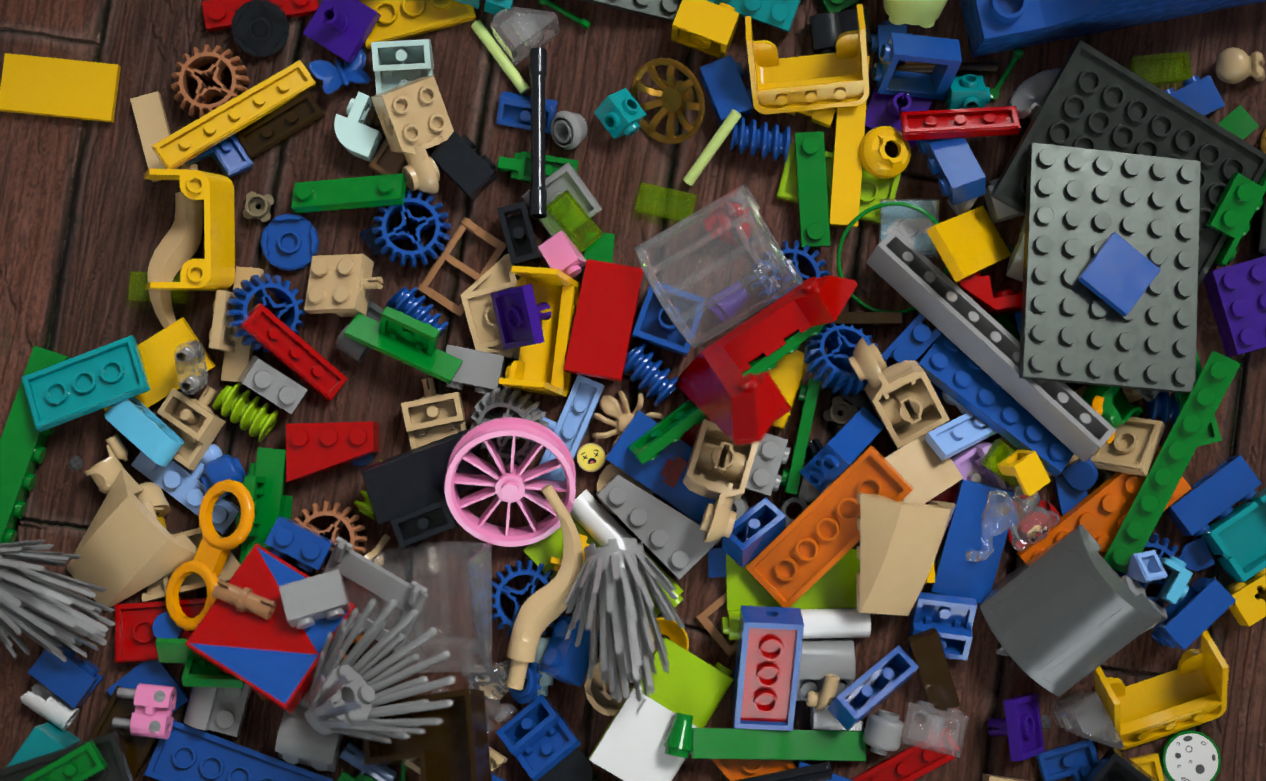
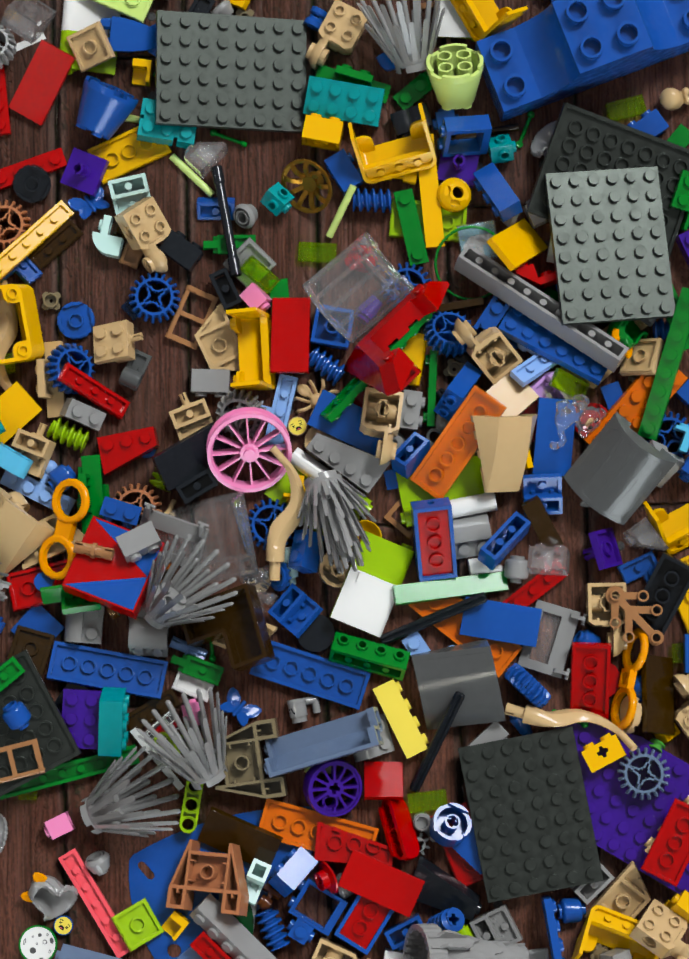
camera: 10 degrees left, 0 degrees up
(152, 710) = (44, 635): bright pink piece -> none
(192, 367) = (29, 411): clear piece -> none
(349, 193) = (110, 281): green plate -> none
(405, 341) = (165, 370): green bracket -> none
(411, 306) = (168, 353): blue piece -> none
(519, 316) = (235, 342): dark purple tile -> none
(673, 470) = (351, 424): clear red plate -> none
(680, 736) = (385, 592): green cone -> none
(824, 696) = (474, 551): tan arm -> none
(959, 123) = (498, 168): red tile -> none
(1027, 469) = (578, 384): yellow panel -> none
(1081, 474) = (616, 381): blue tile -> none
(1118, 274) = (613, 248): blue tile -> none
(1146, 567) = (664, 432): light blue slope -> none

